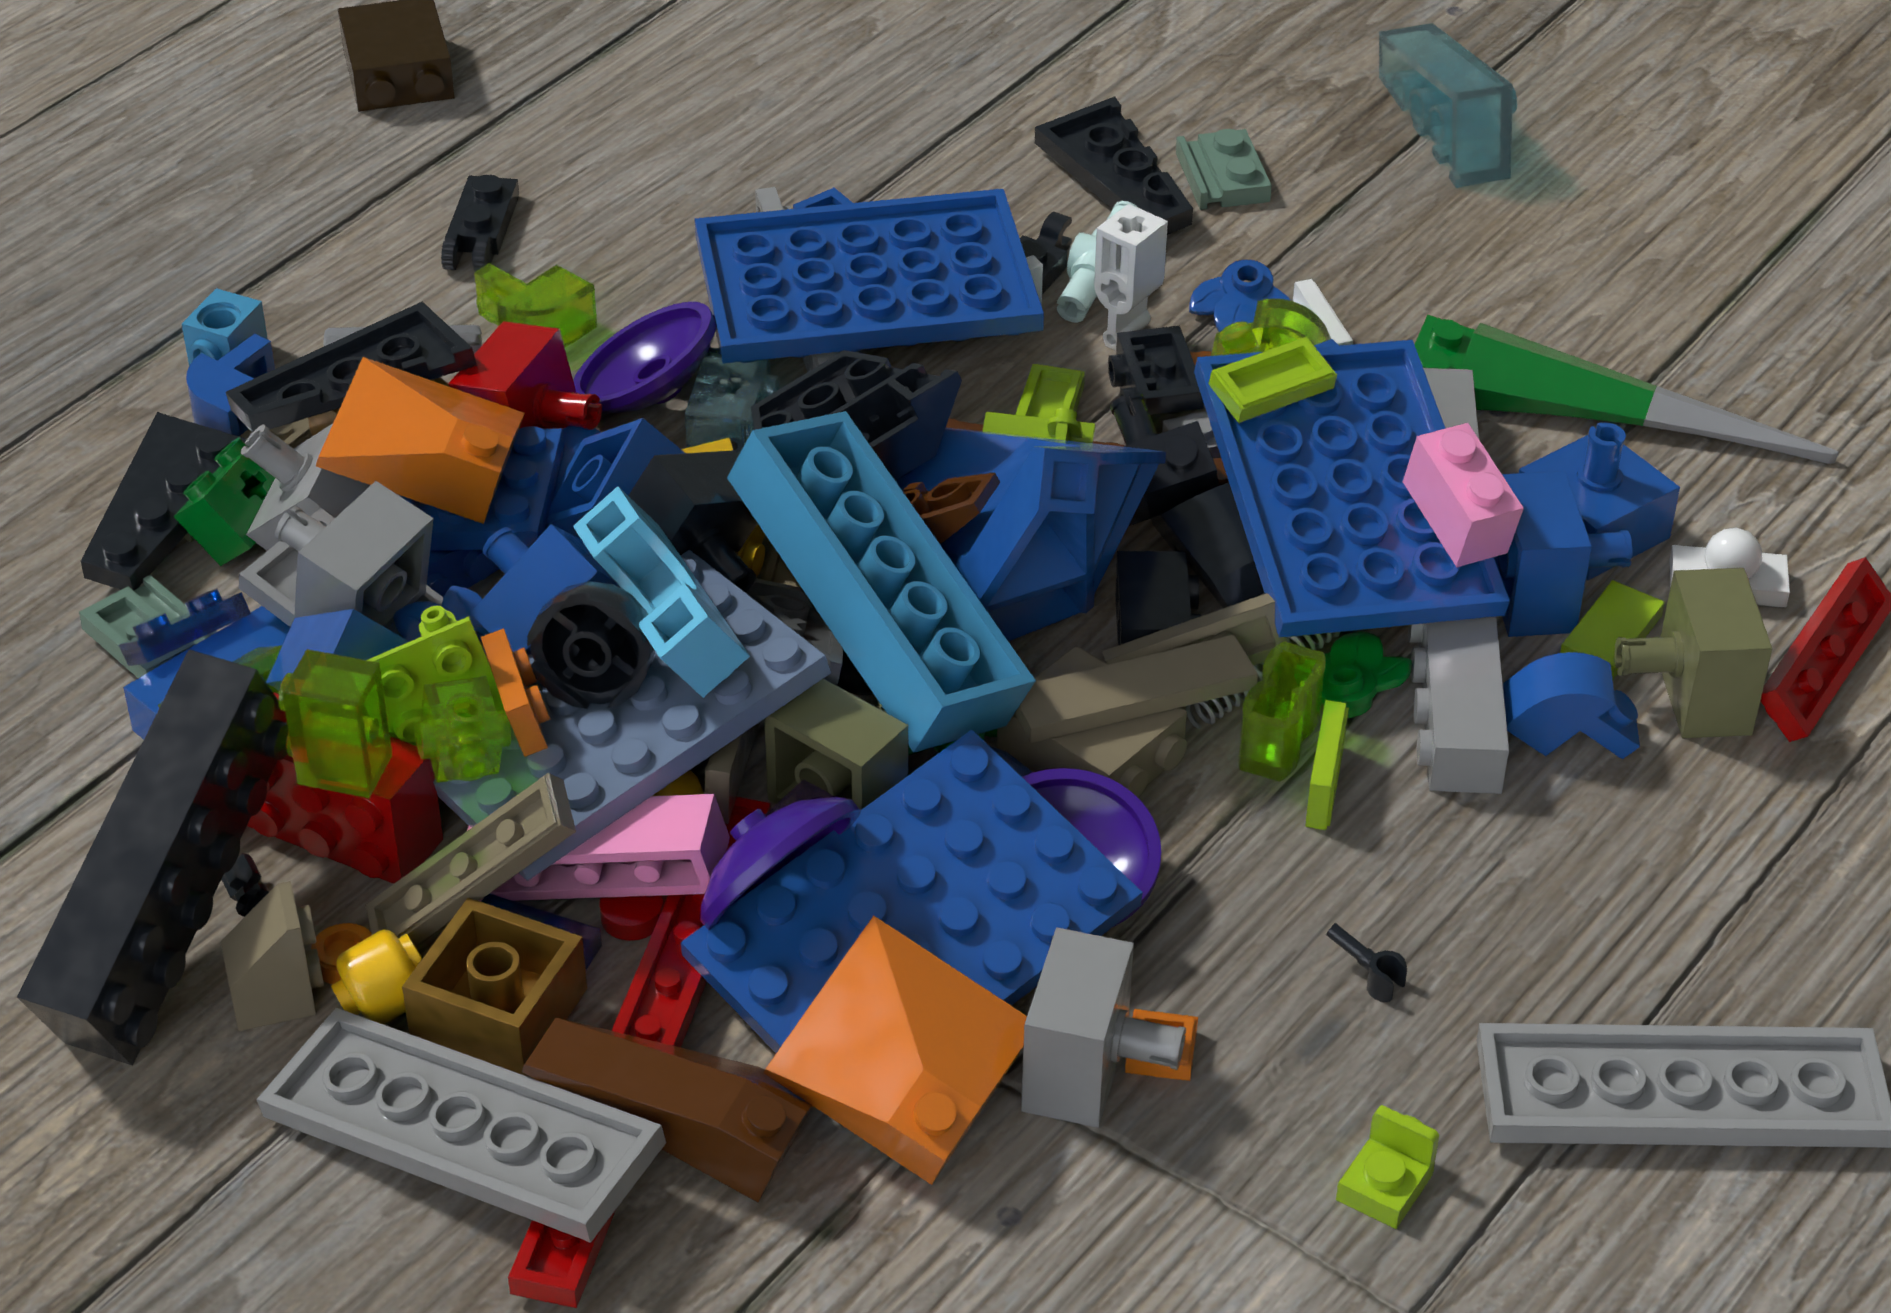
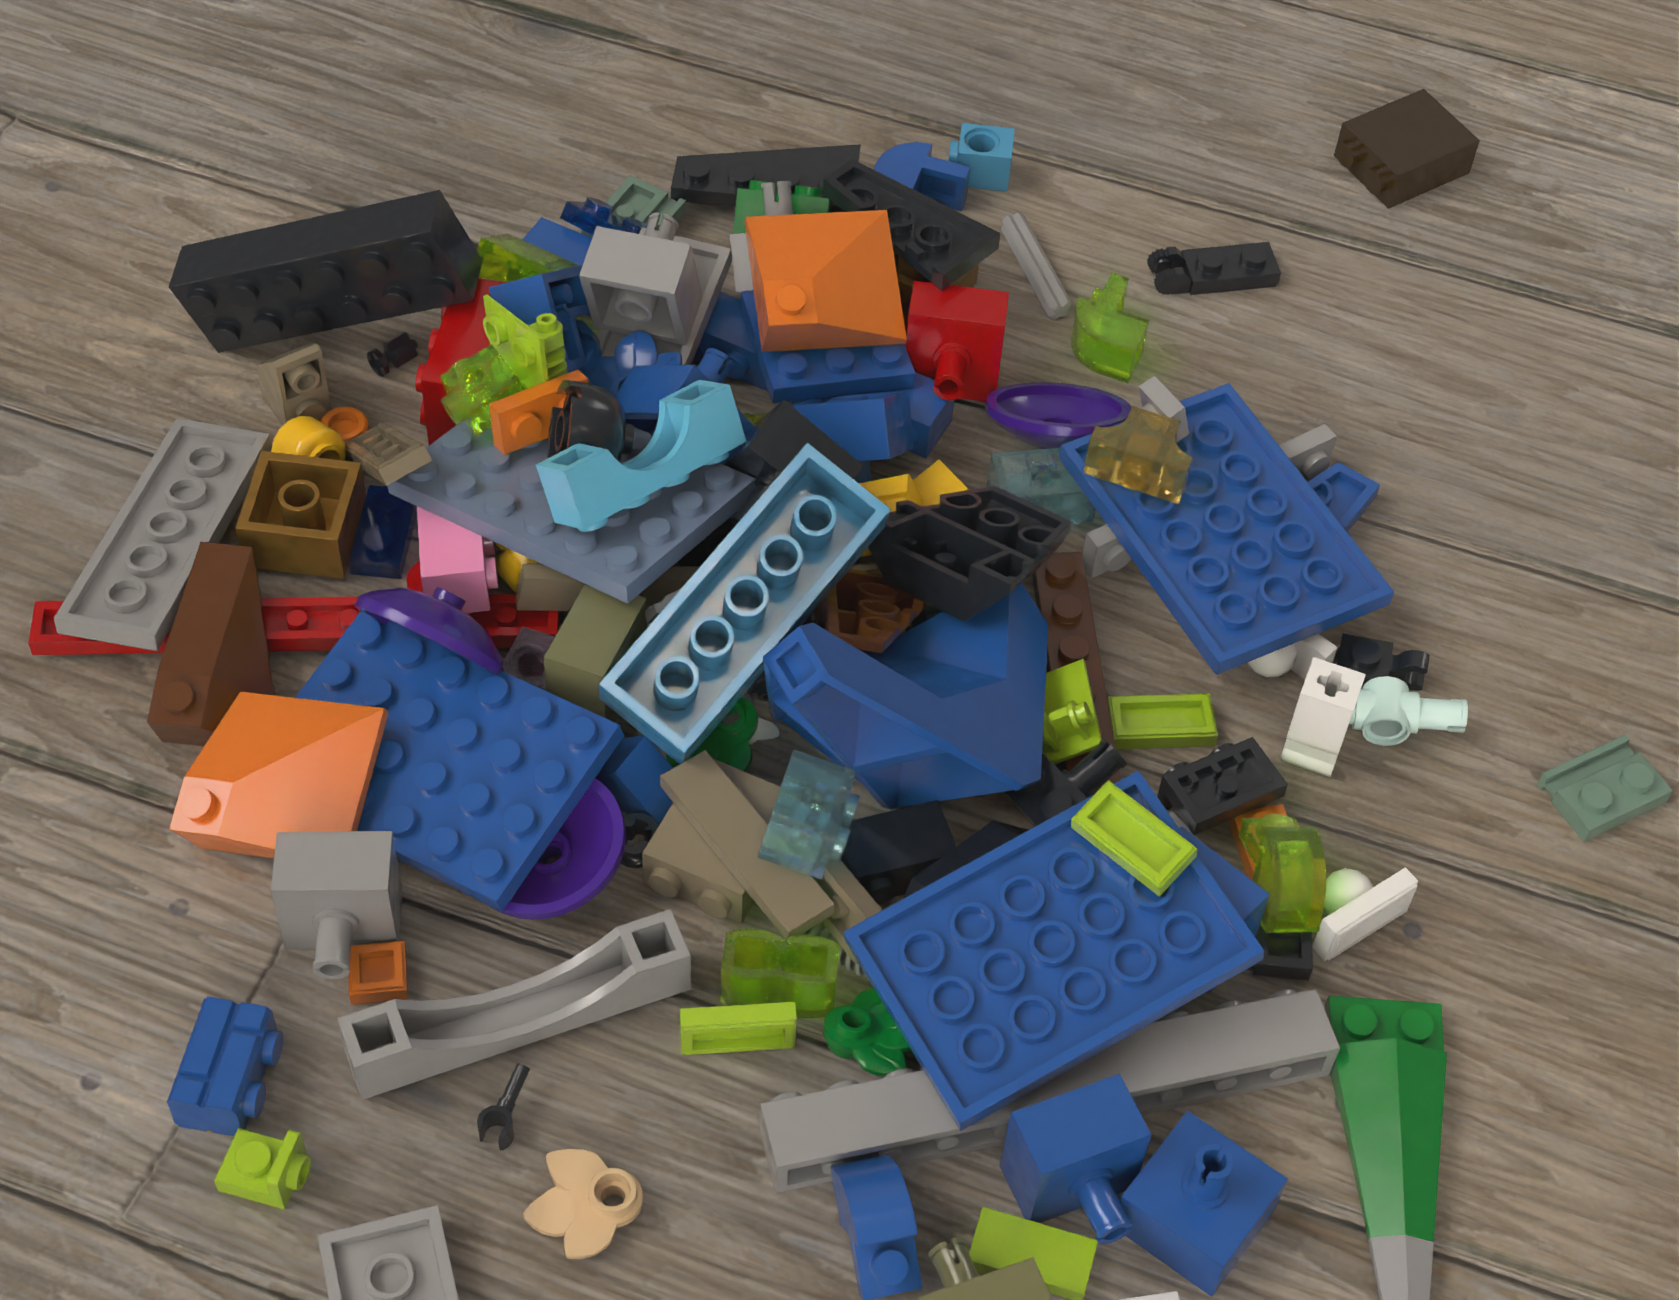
camera: 70 degrees right, 10 degrees up
(336, 723) = (440, 309): clear neon green brick -> none
(731, 253) = (1160, 400): none -> light grey plate
(783, 281) = (1140, 455): none -> clear yellow brick
(1112, 162) = (1548, 694): black wing -> none
(1133, 618) = (808, 815): none -> clear light blue brick
(1232, 298) = (1385, 841): blue plate -> none
(1260, 1179) = (225, 1066): none -> blue brick
(1273, 986) = (421, 1039): none -> light grey arch
(1462, 494) = (1043, 1034): bright pink brick -> none
(1489, 923) = (576, 1202): none -> tan plate

